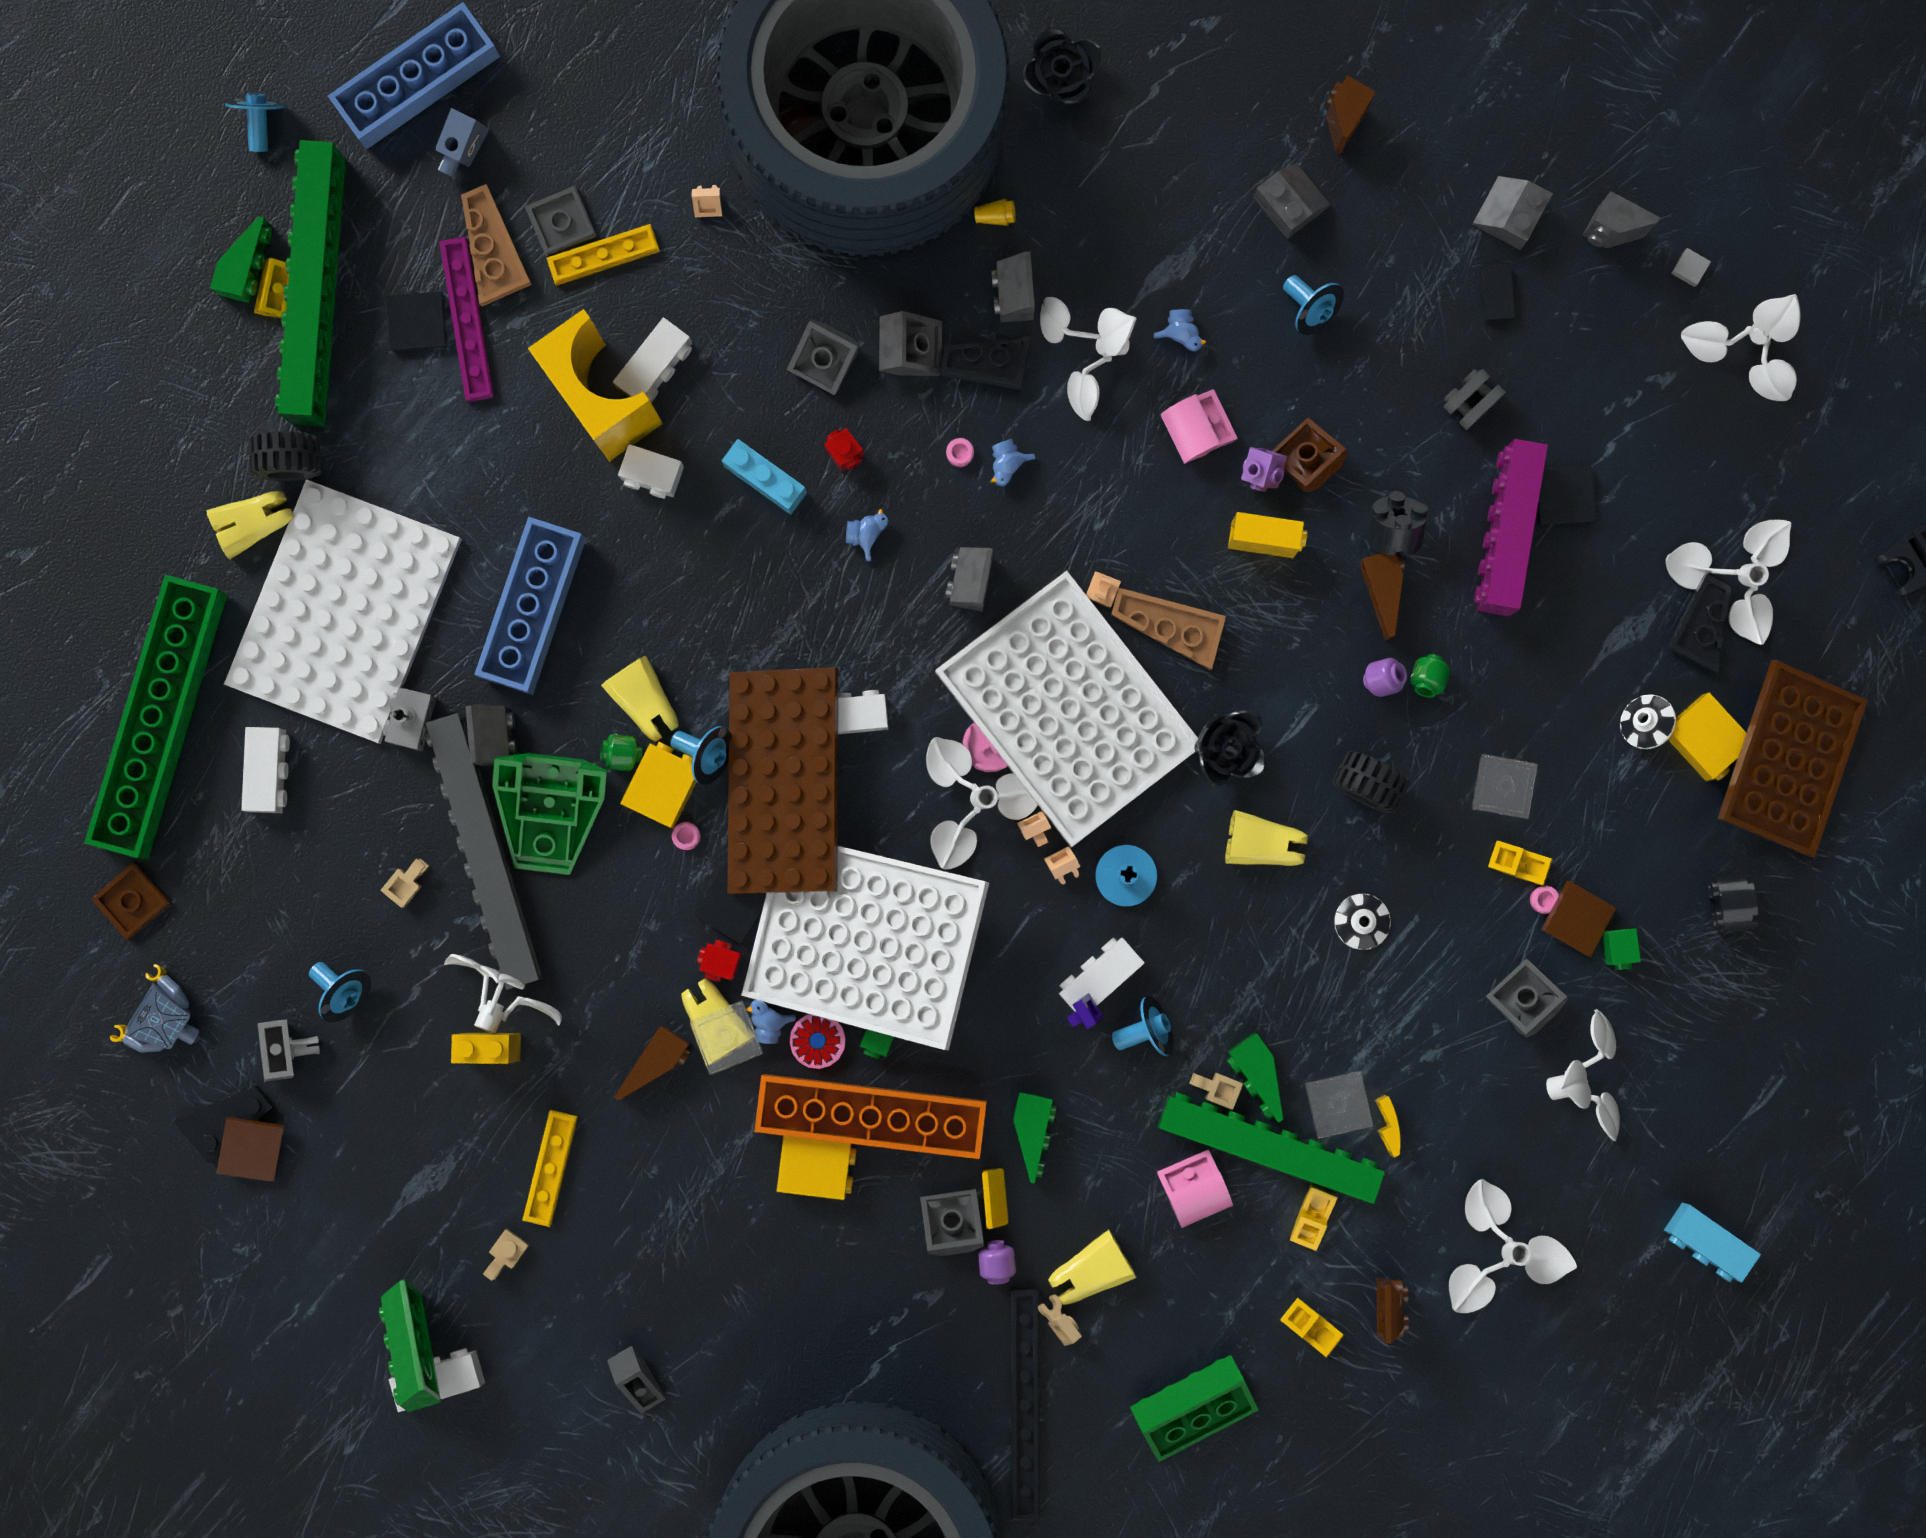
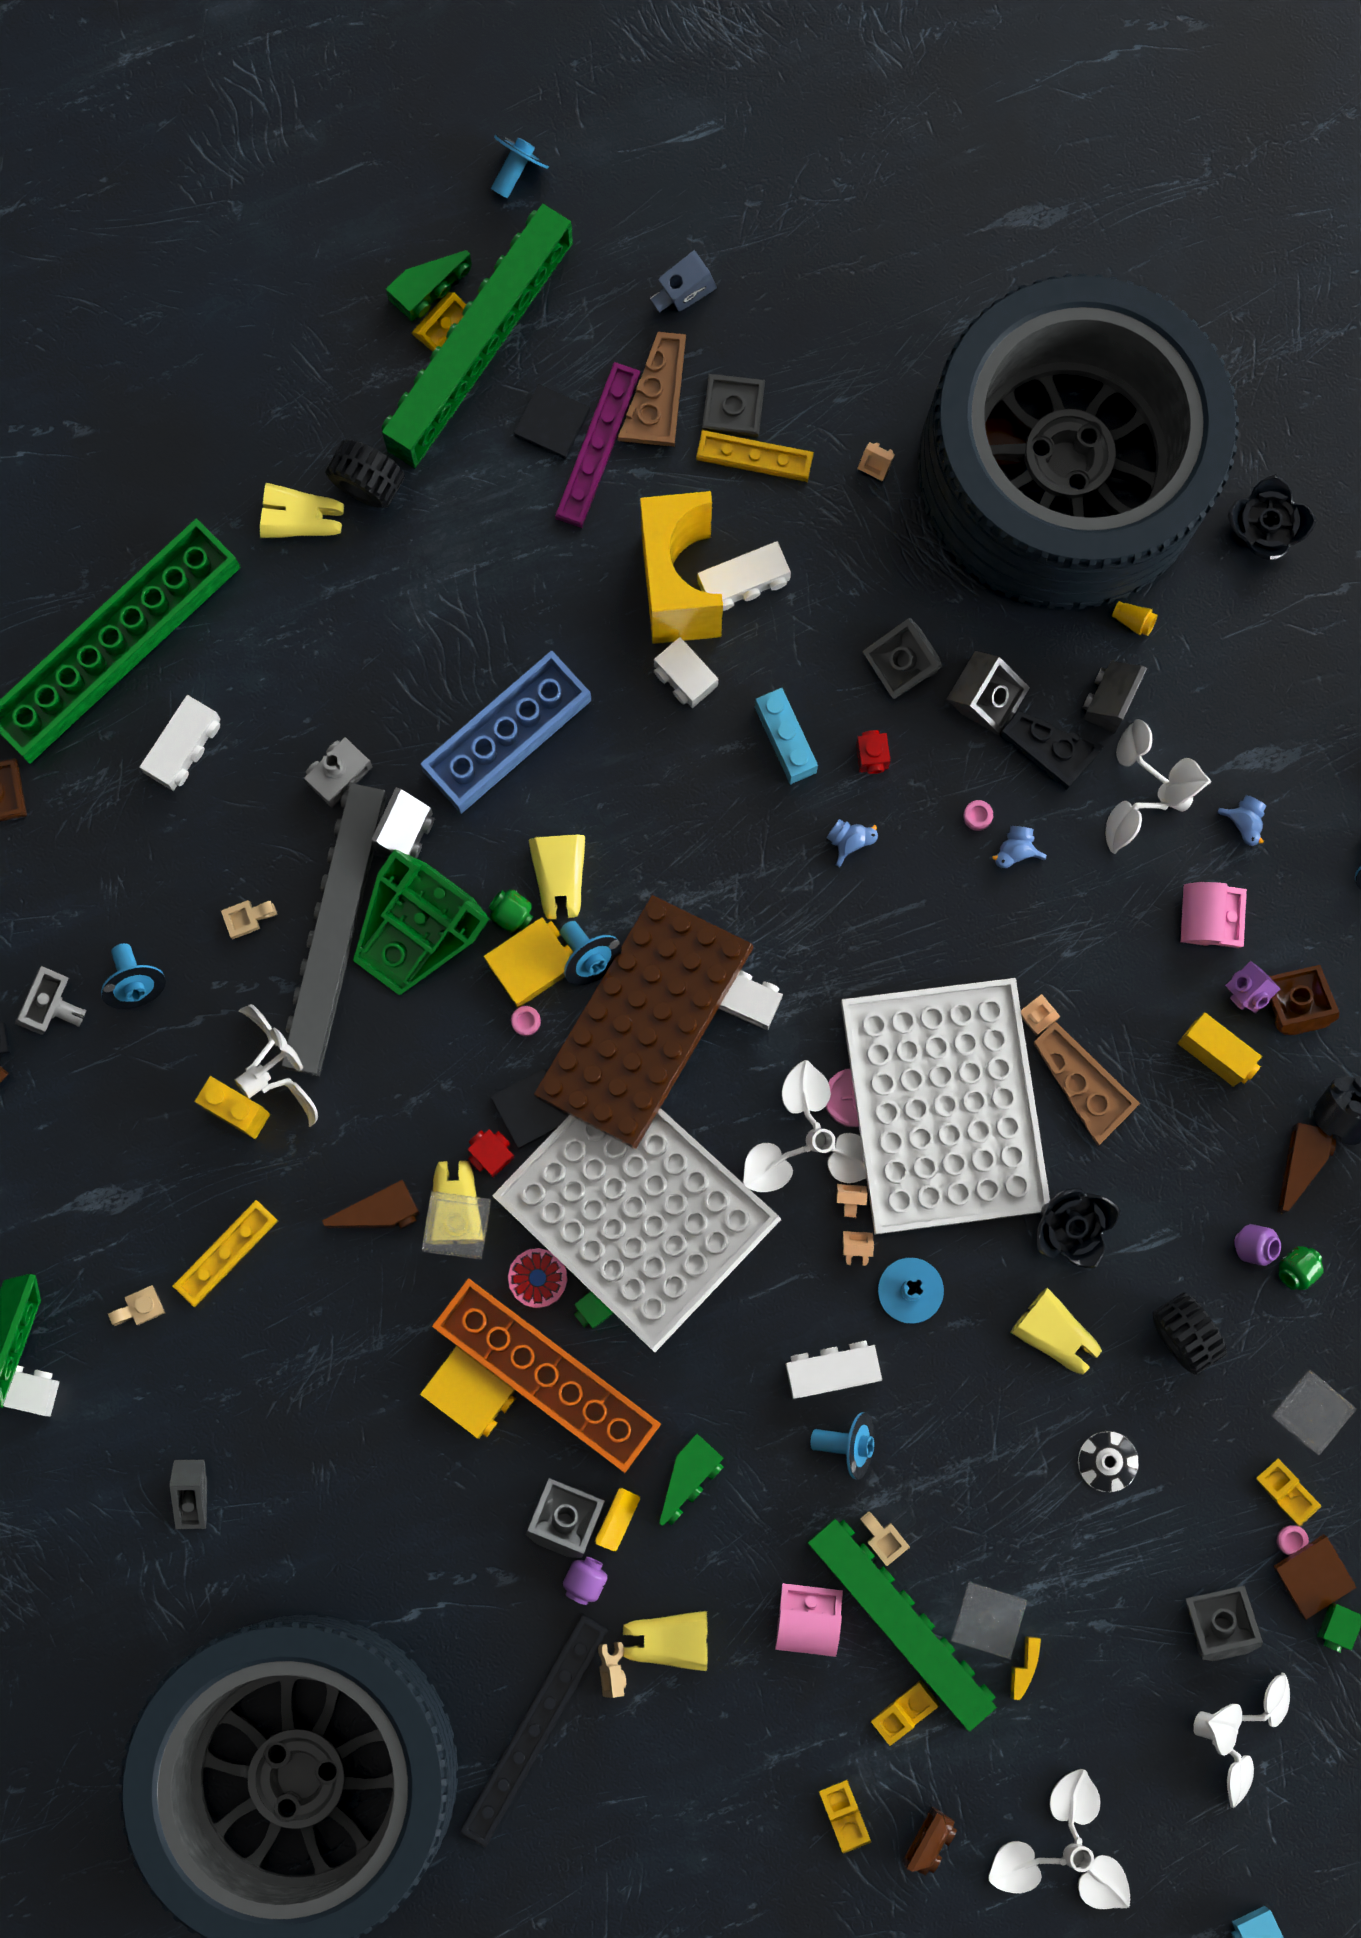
camera: 25 degrees right, 5 degrees down
(342, 611) = (334, 641): white plate -> none
(414, 75) = (677, 204): medium blue brick -> none
(768, 1022) = (502, 1233): medium blue animal -> none
(970, 578) = (922, 934): flat silver slope -> none
(1085, 1011) = (802, 1393): dark purple tile -> none
(1194, 1408) = (690, 1827): green slope -> none
(1258, 1067) = (932, 1541): green slope -> none

